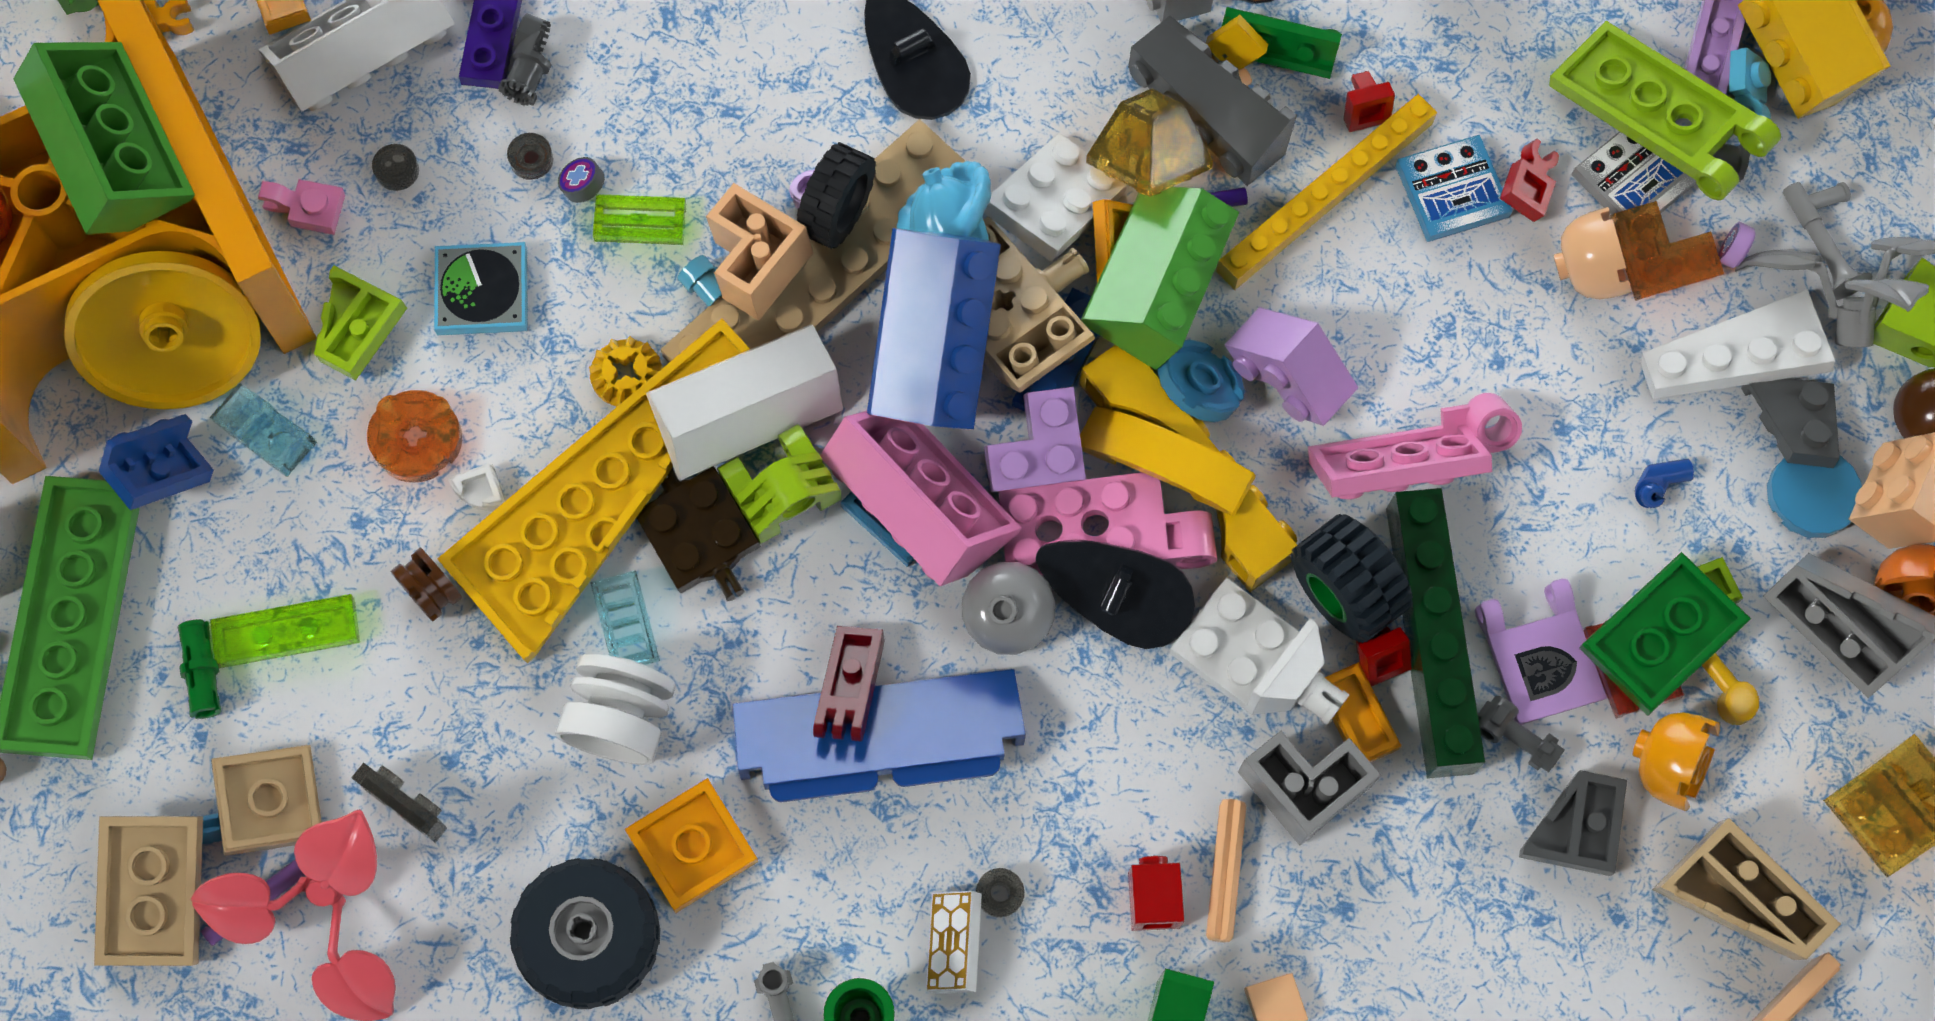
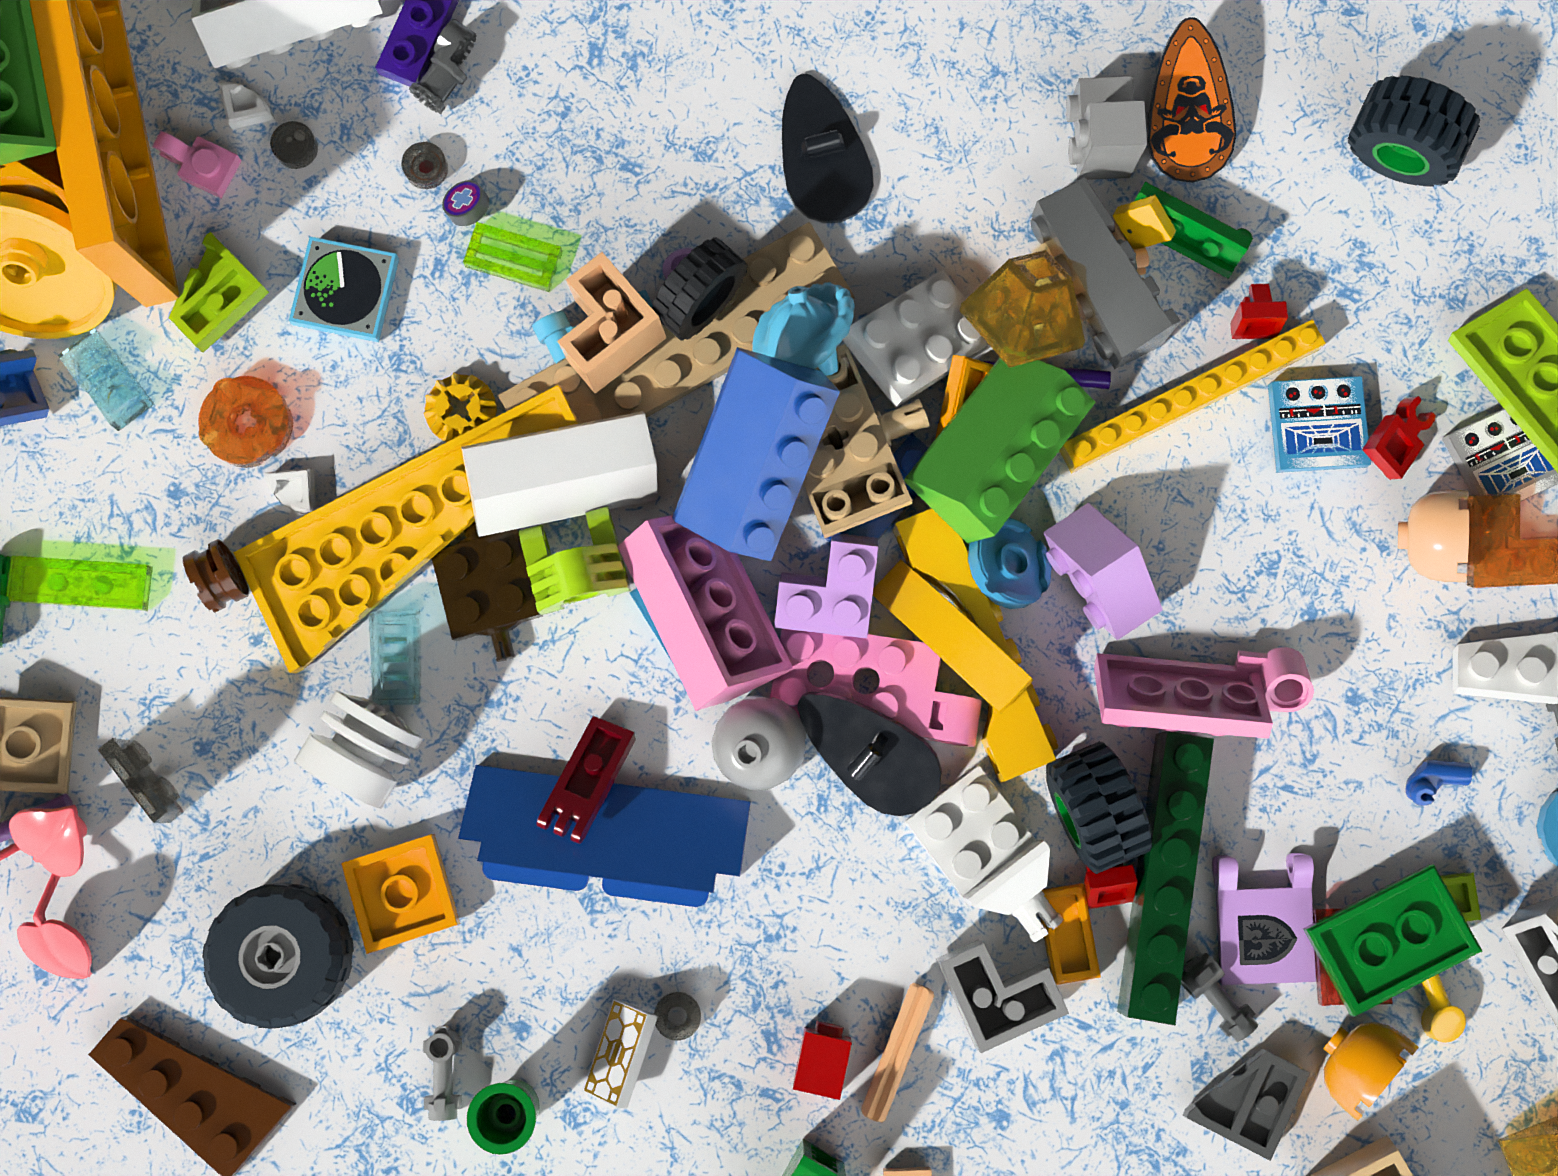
camera: 20 degrees right, 10 degrees up
(336, 142) = (243, 106): none -> white tile

